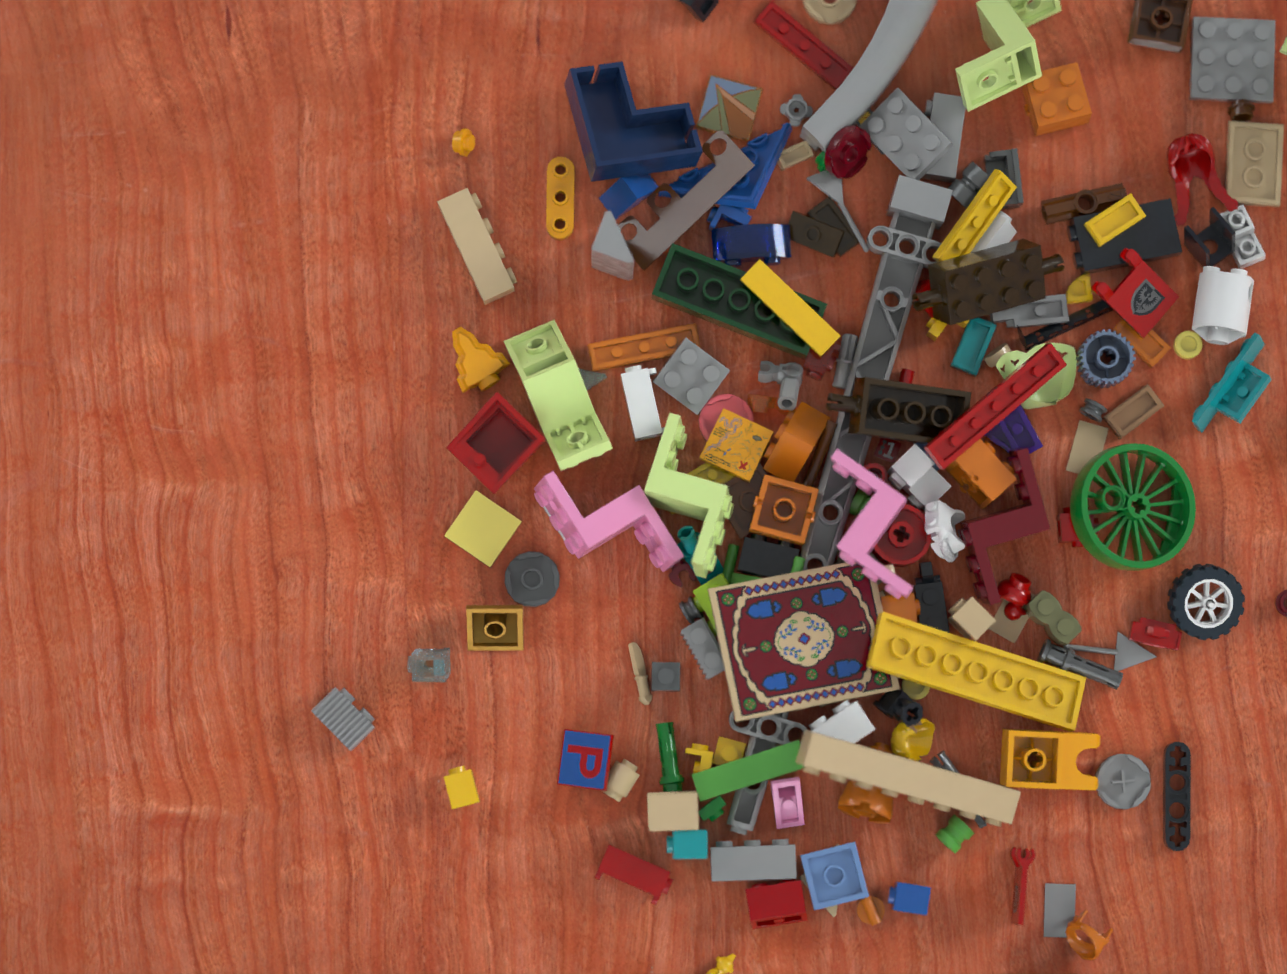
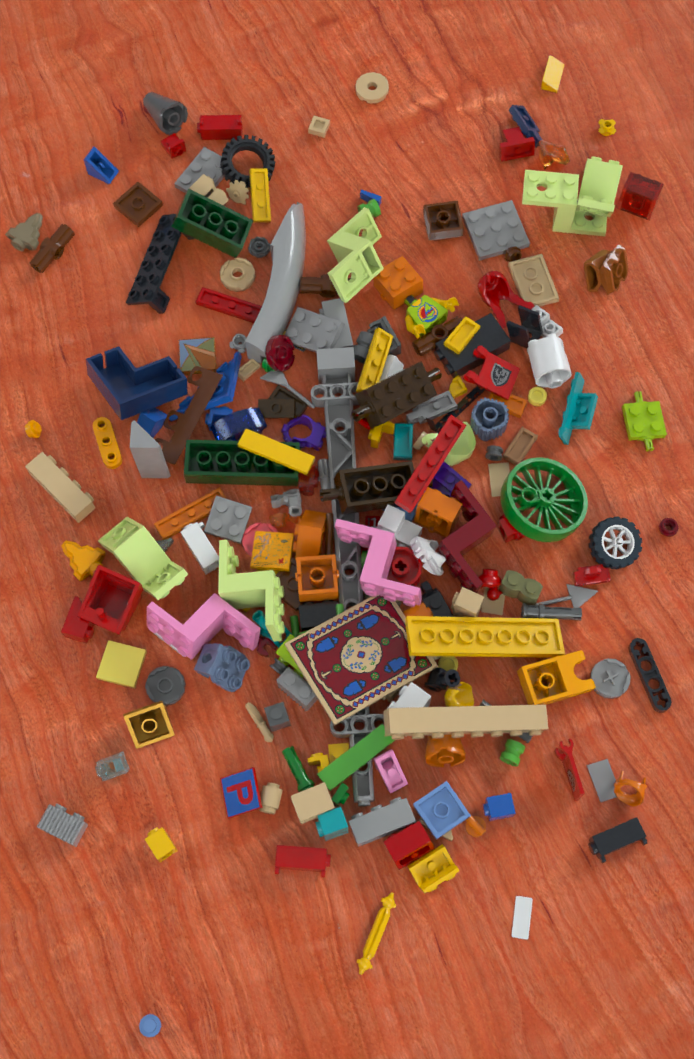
camera: 10 degrees left, 15 degrees down
(437, 457) = (75, 627): none -> red slope
(620, 587) = (223, 665): none -> sand blue piece
(796, 945) = (433, 869): none -> yellow bracket
(859, 290) = (314, 440): none -> dark purple piece
(940, 59) = (318, 285): none -> reddish brown piece
(1078, 163) = (427, 313): none -> torso

